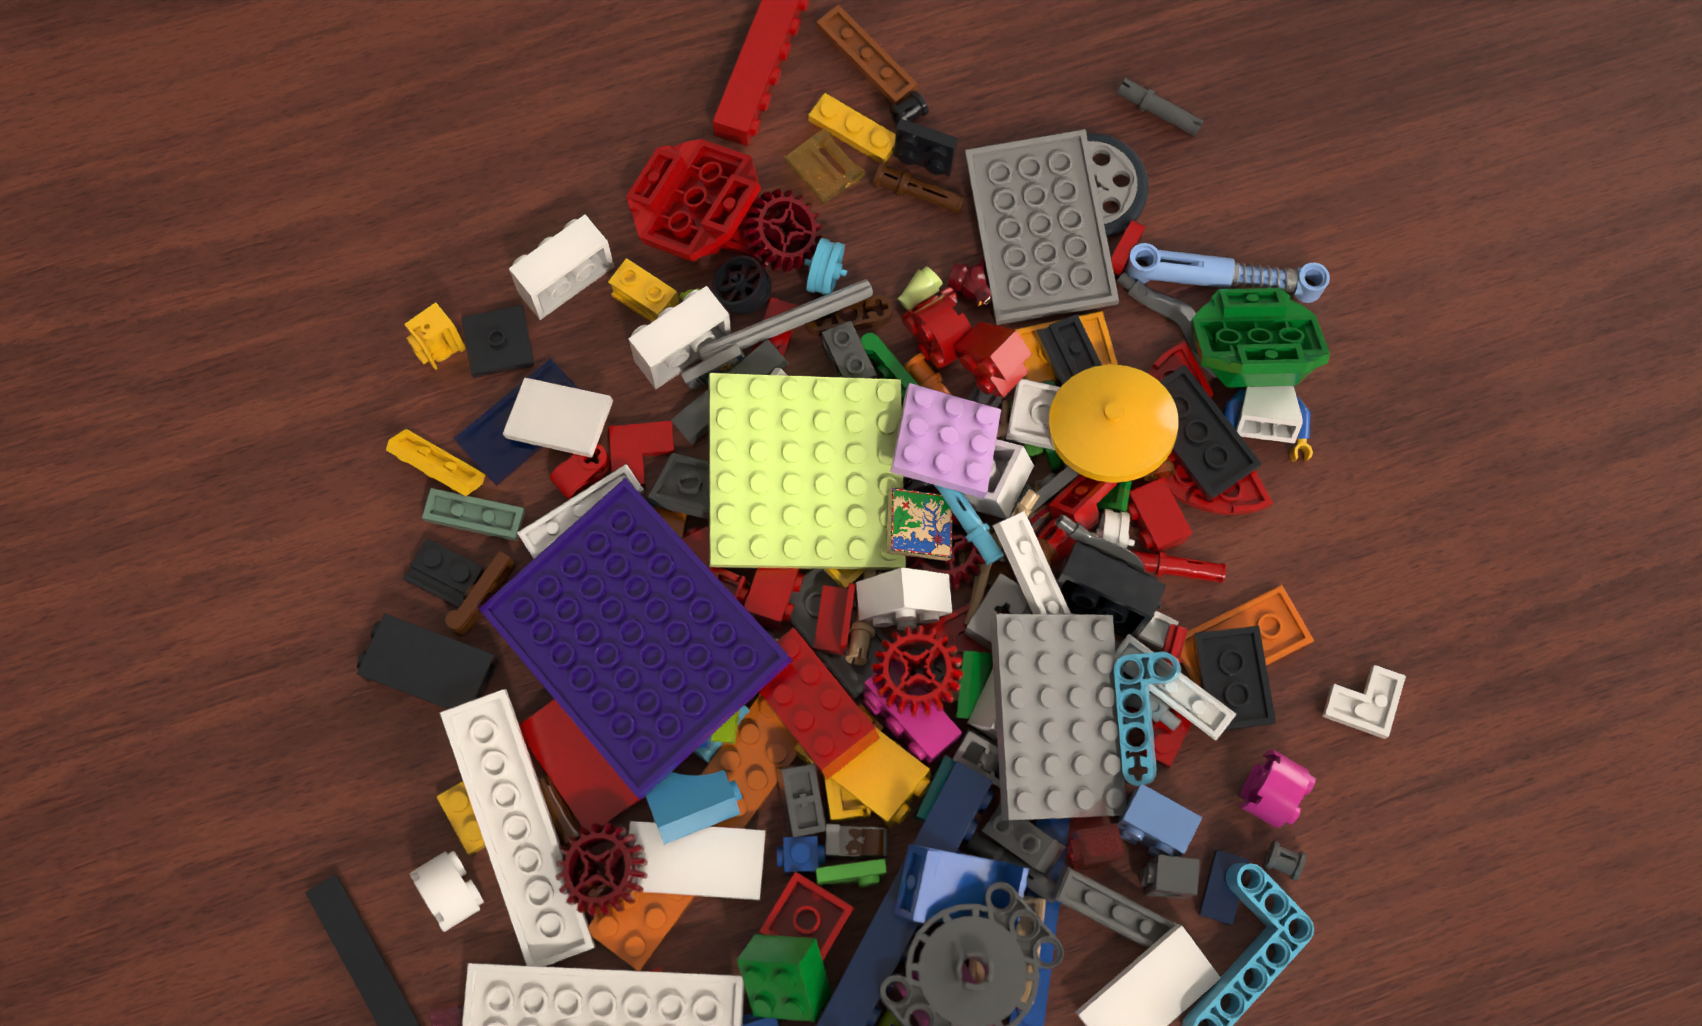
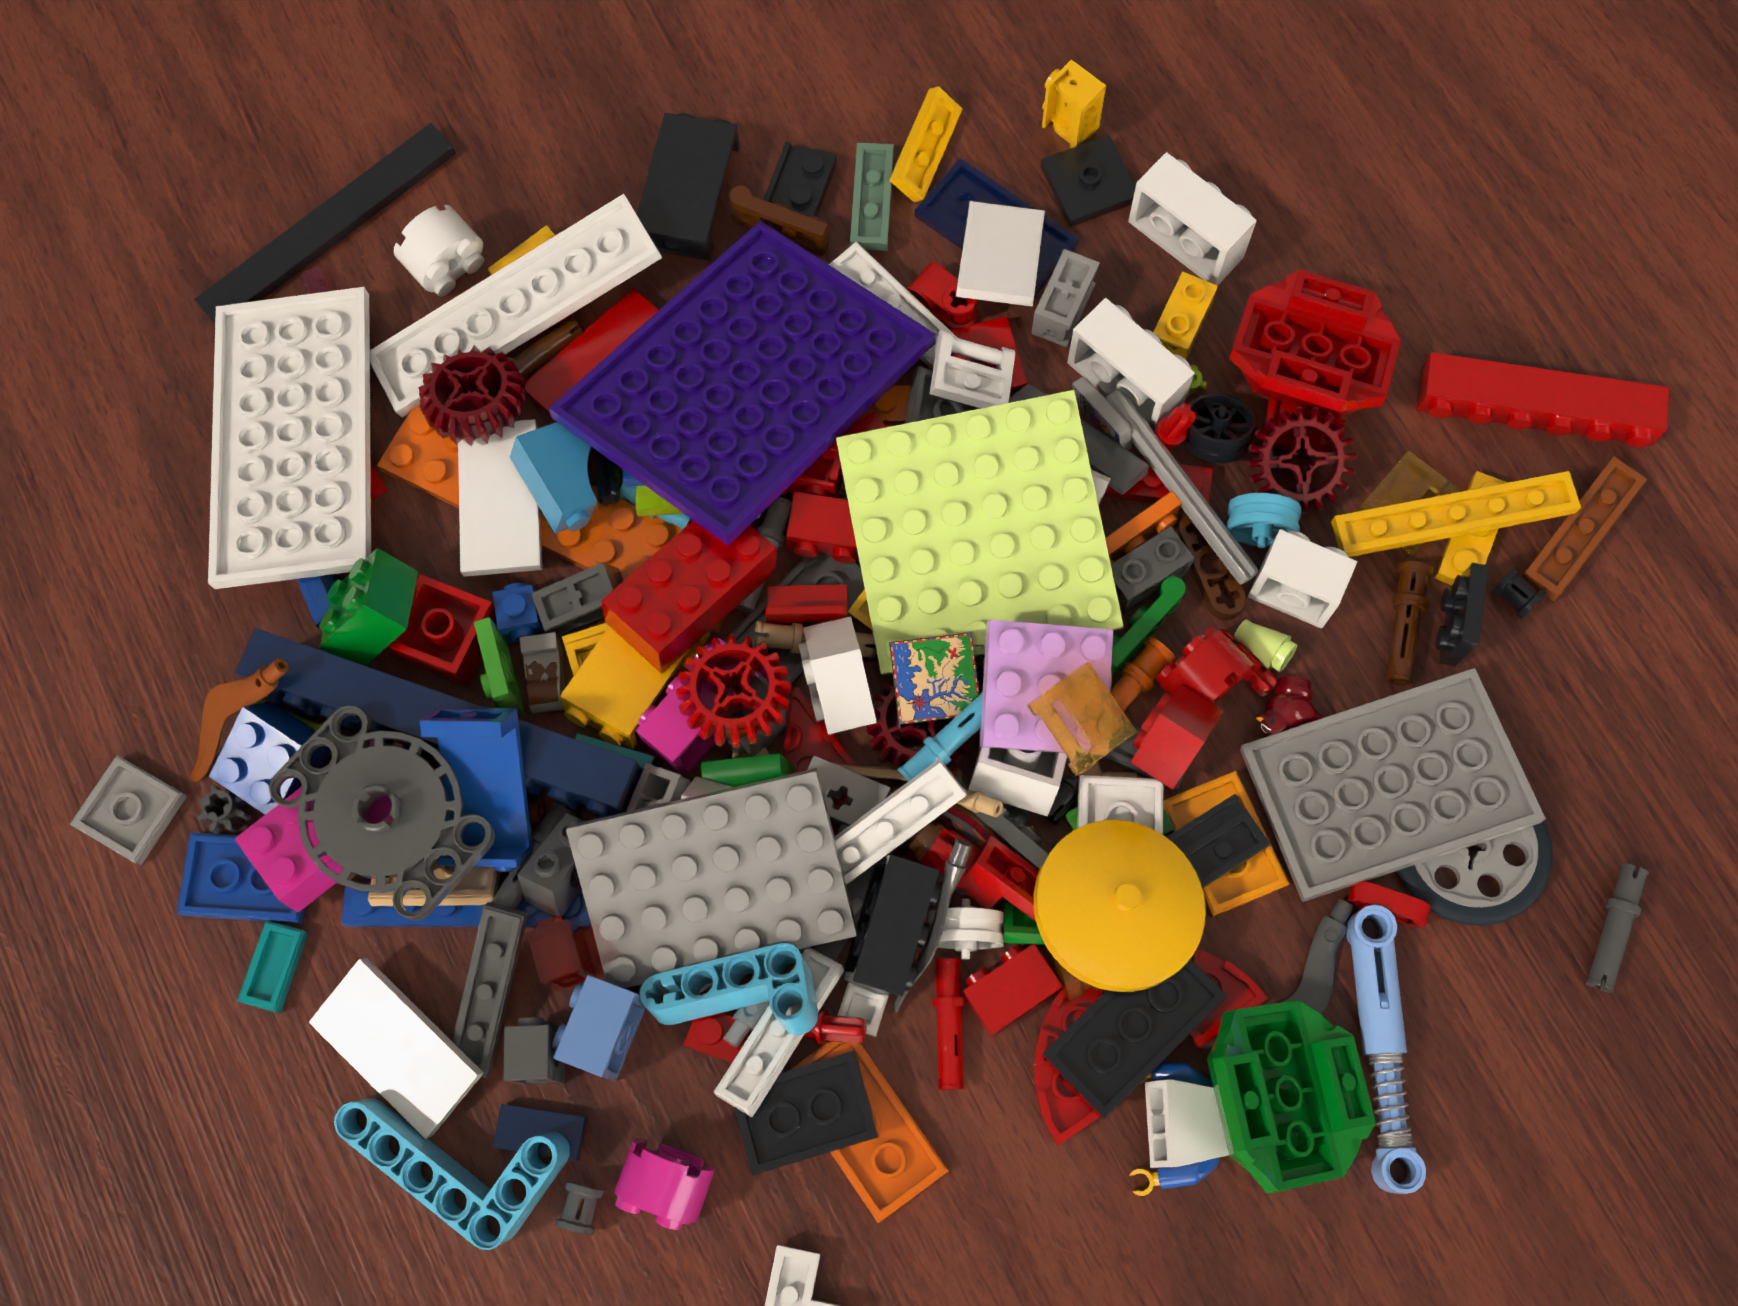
camera: 90 degrees right, 0 degrees up
(607, 375) = (1065, 298): none -> light grey hinge
(669, 460) = (970, 381): none -> white plate
(698, 766) = (609, 481): none -> black axle
(740, 314) = (1174, 427): none -> red axle
(807, 347) = (1133, 534): none -> orange plate
(846, 136) = (1456, 514): none -> yellow plate
(878, 248) = (1302, 578): none -> white brick
(973, 408) = (1093, 712): none -> clear yellow plate

